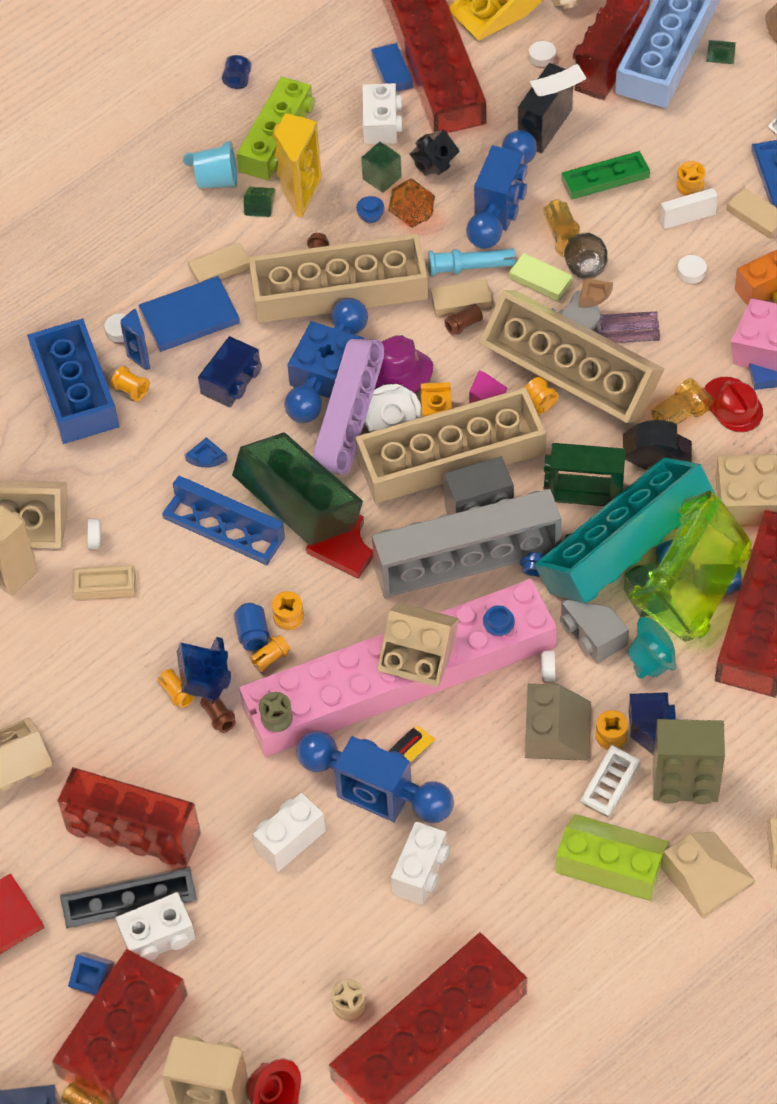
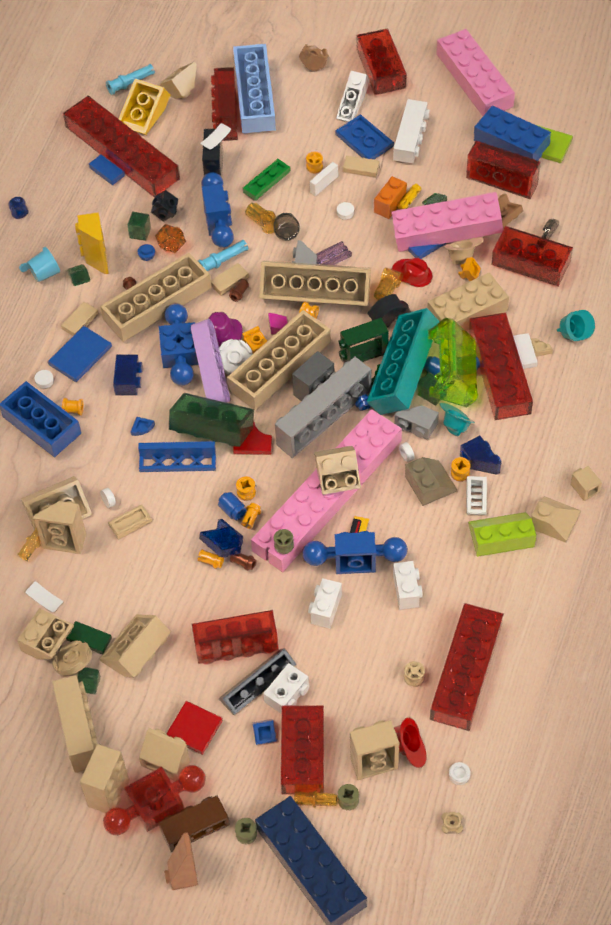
camera: 30 degrees left, 0 degrees up
(135, 339) = (63, 380): blue slope -> none
(258, 149) = (63, 230): lime brick -> none
(379, 113) = (118, 197): white brick -> none
(498, 621) = (371, 438): blue plate -> none
(540, 277) = (266, 249): yellowish green tile -> none
(542, 53) = (187, 127): white tile -> none
(594, 292) = (305, 243): medium nougat tile -> none
(688, 760) = (515, 464): olive brick -> none
(721, 52) = (286, 87): clear green slope -> none

